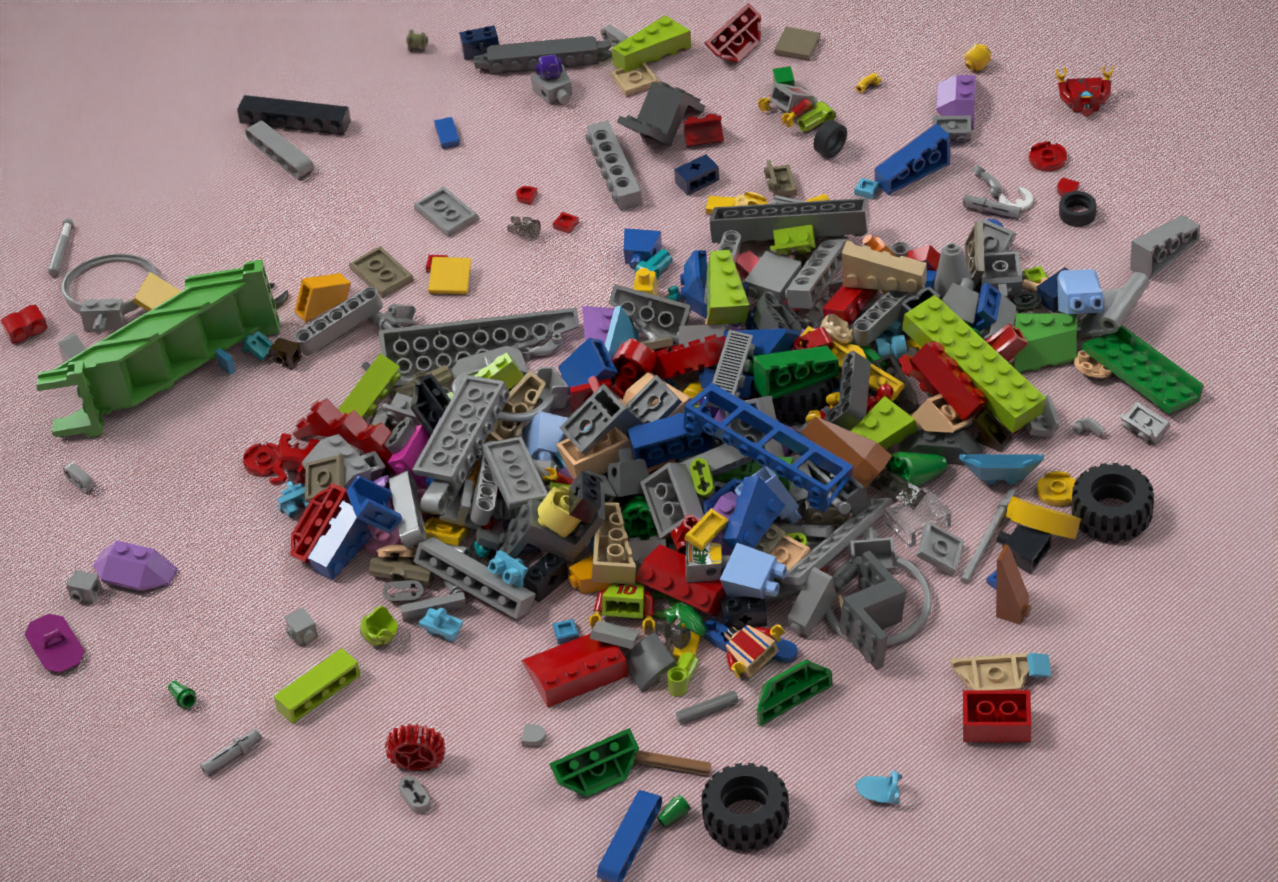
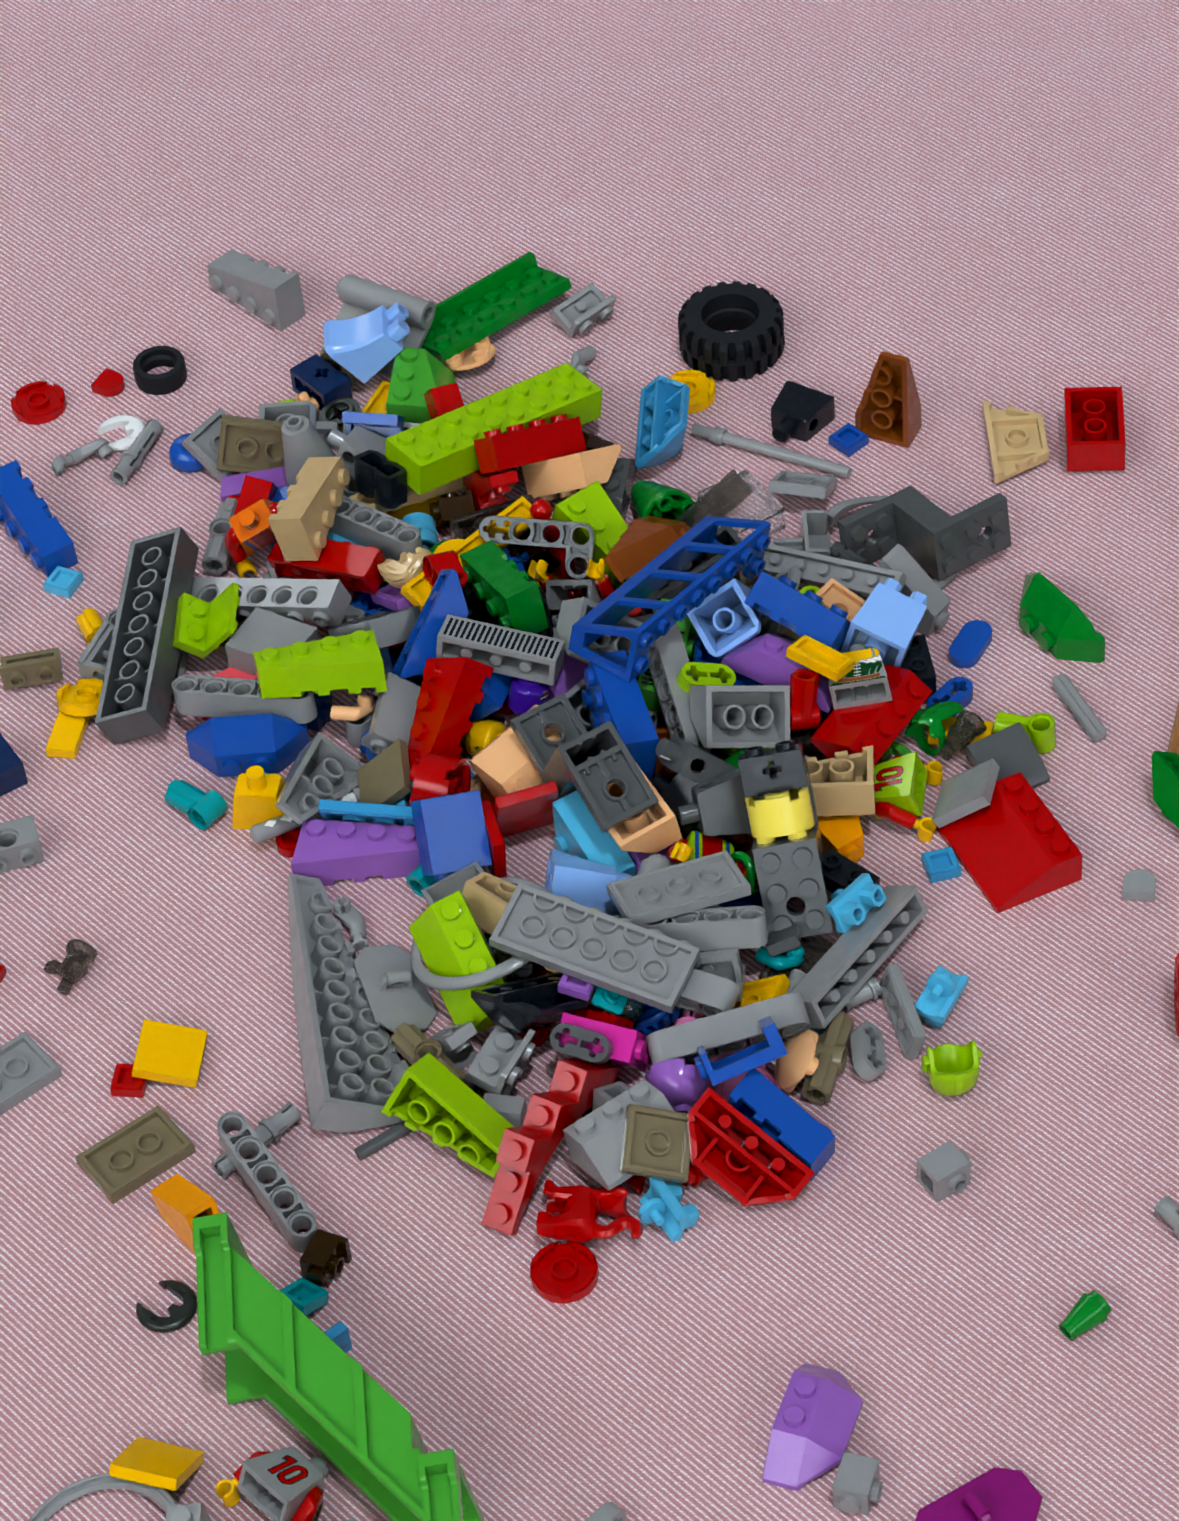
camera: 90 degrees left, 0 degrees up
(317, 685) = (1064, 1139): lime brick -> none
(400, 314) = (264, 1100): light grey hinge -> none
(565, 222) = (64, 921): red tile -> none
(640, 245) = (151, 820): blue torso -> none
(751, 648) = (988, 655): torso -> none
(1039, 665) = (1003, 398): medium azure tile -> none
(1042, 518) = (757, 395): yellow arch -> none

